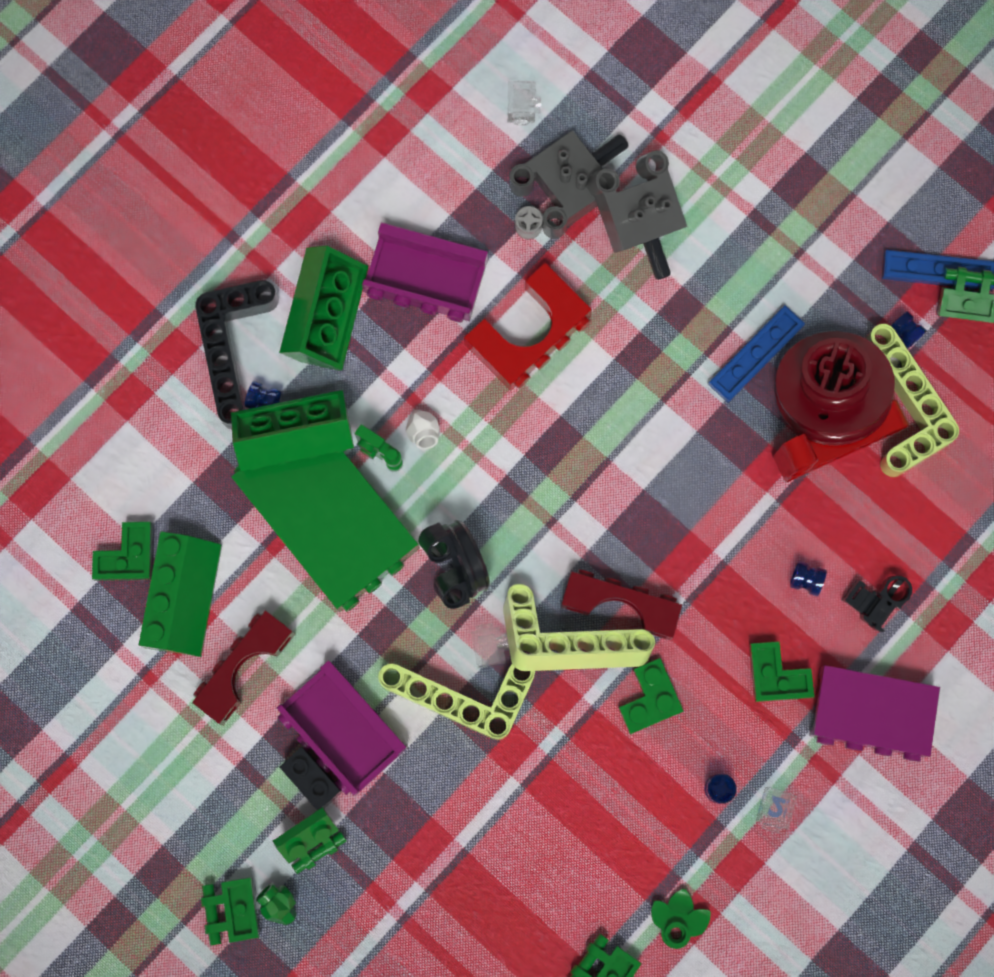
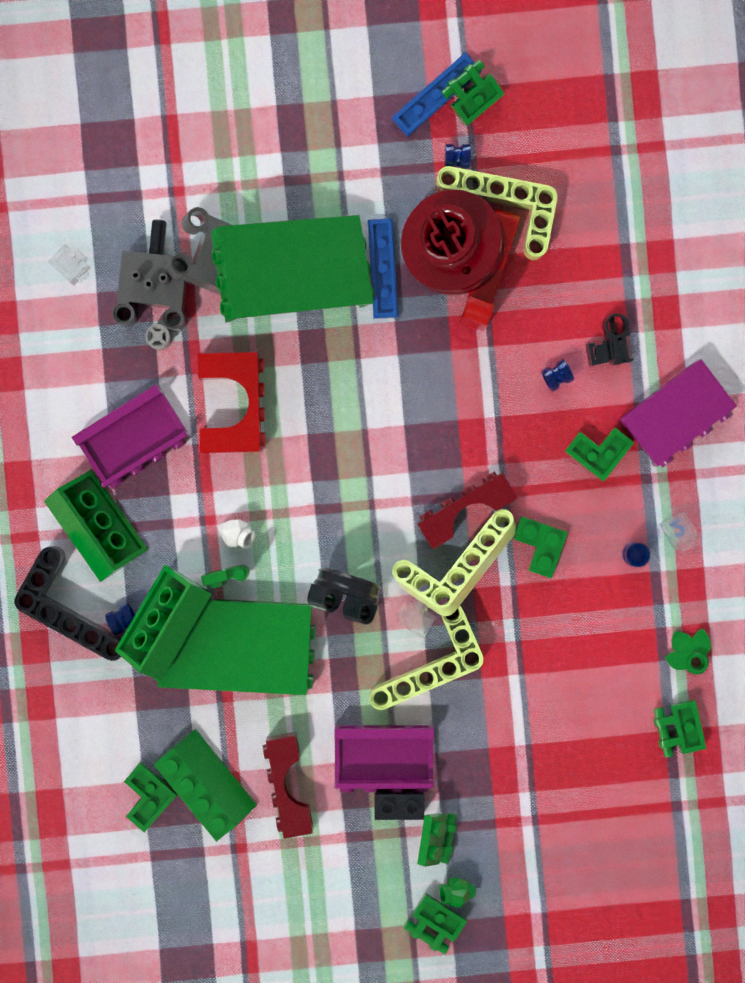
camera: 40 degrees left, 10 degrees up
(690, 270) = (291, 266): none -> green panel

